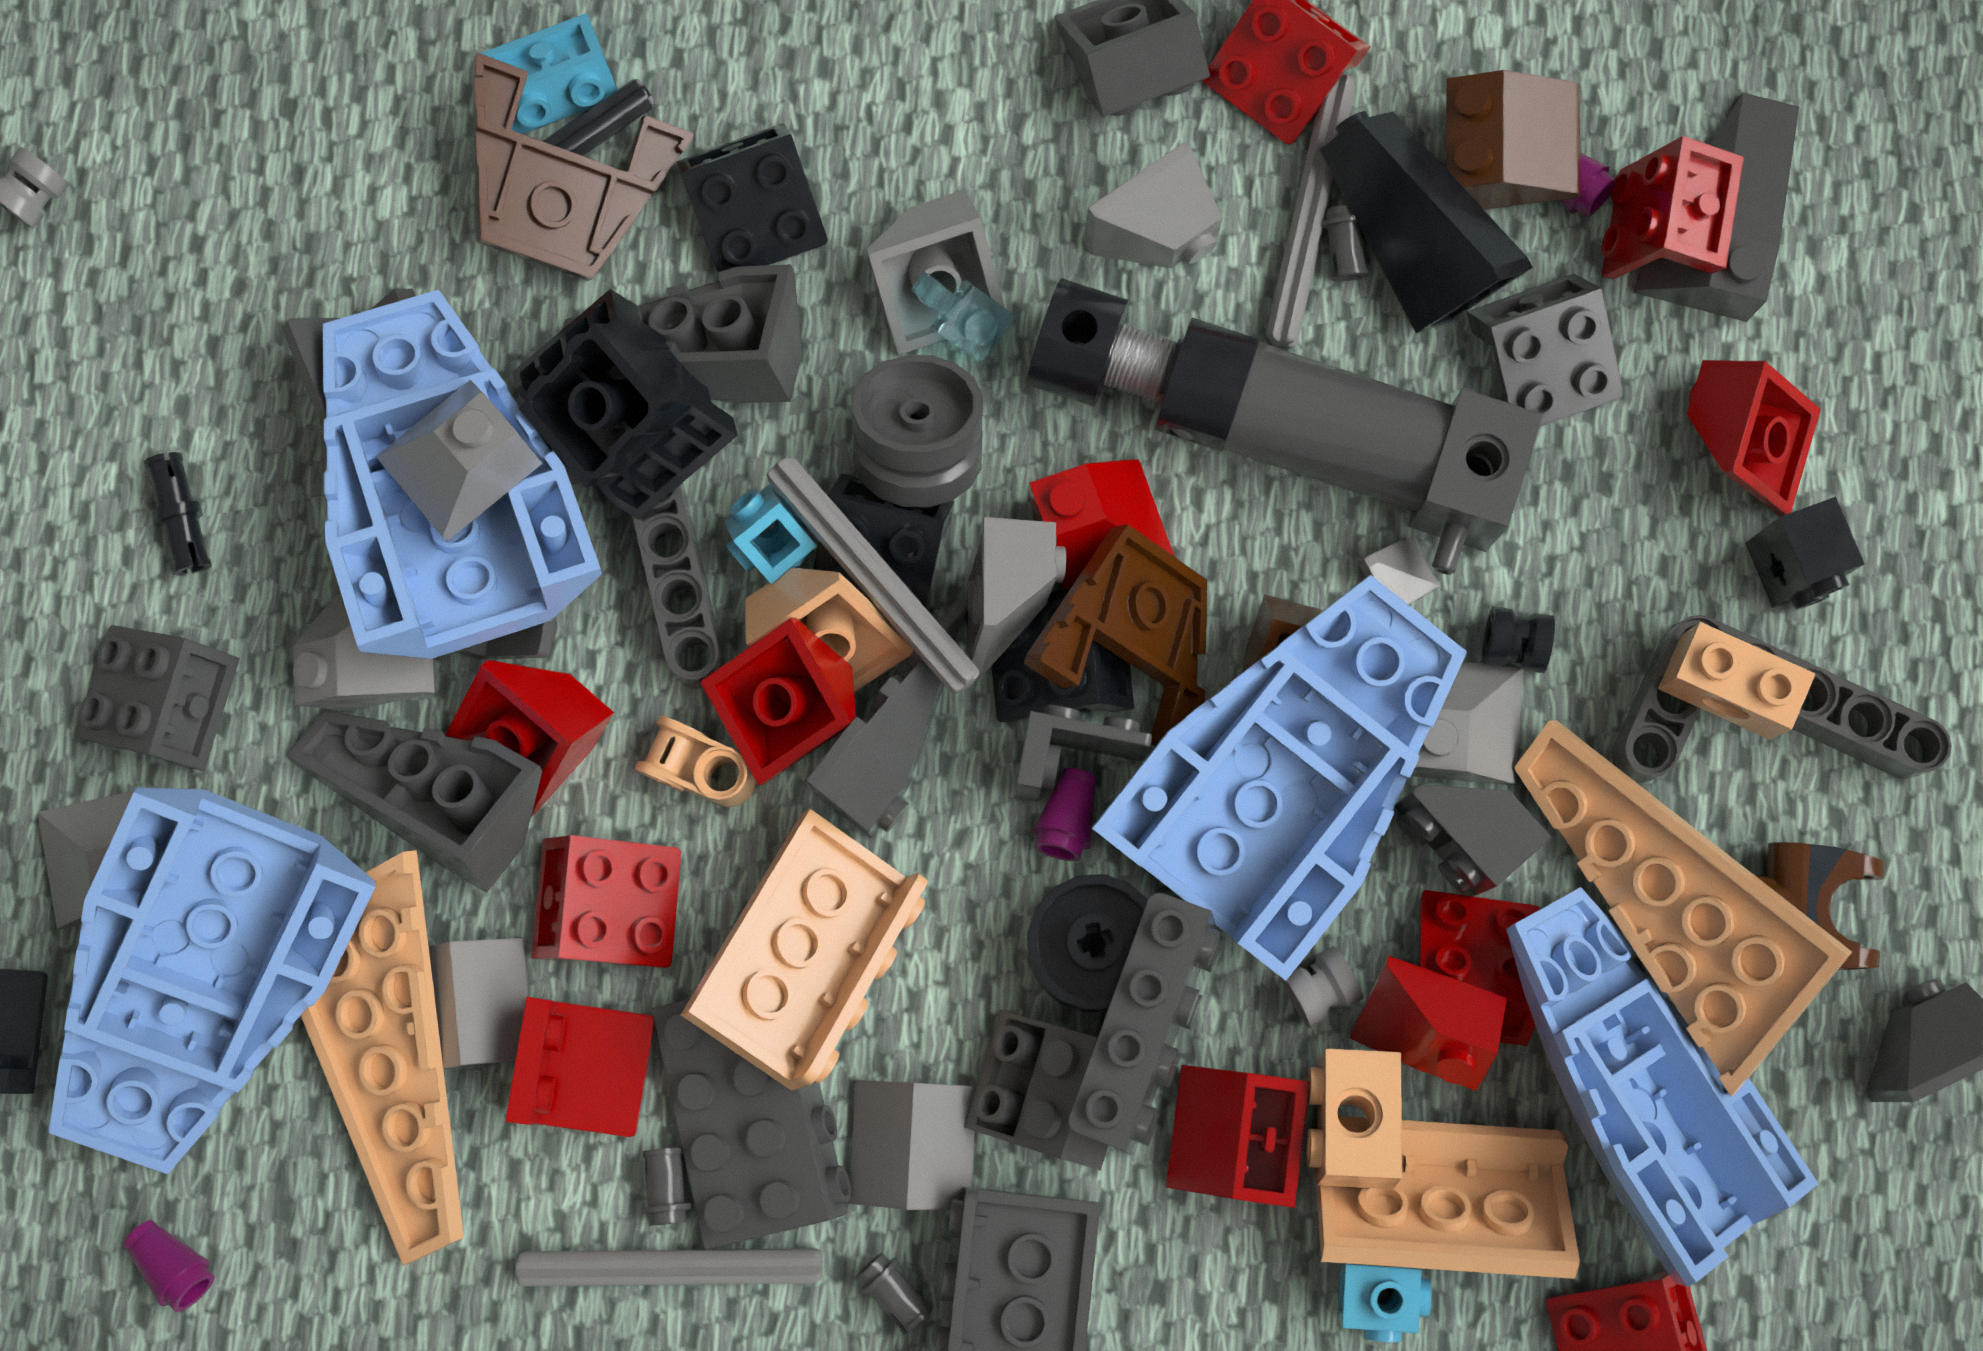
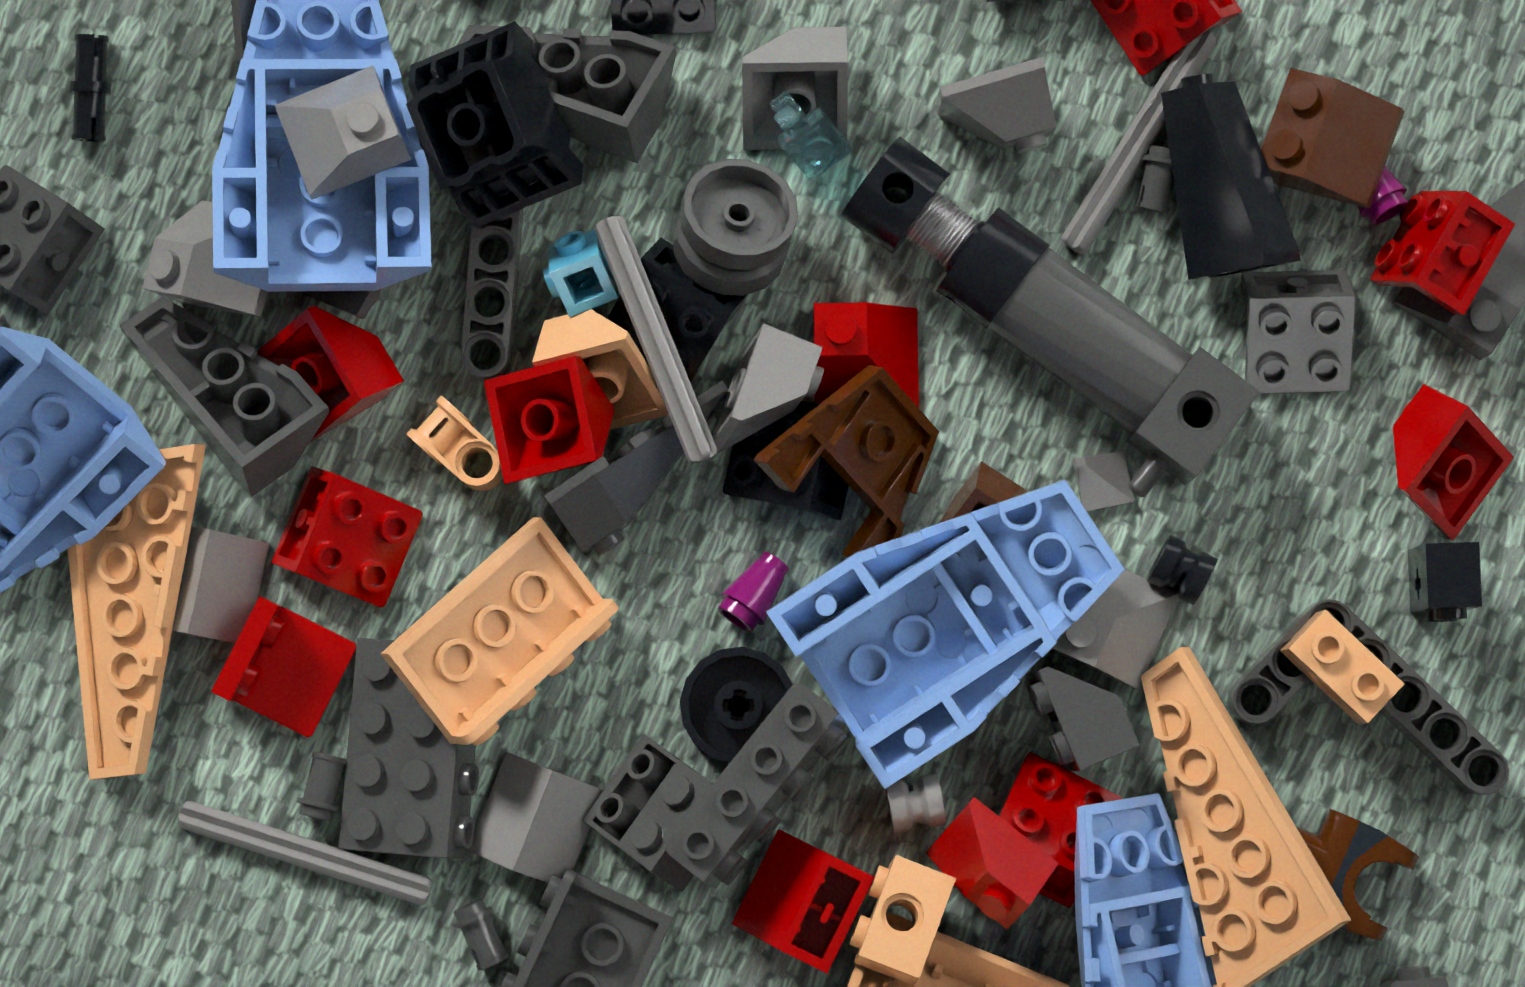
camera: 15 degrees right, 5 degrees up
(1062, 728) = (745, 540): dark grey bracket -> none

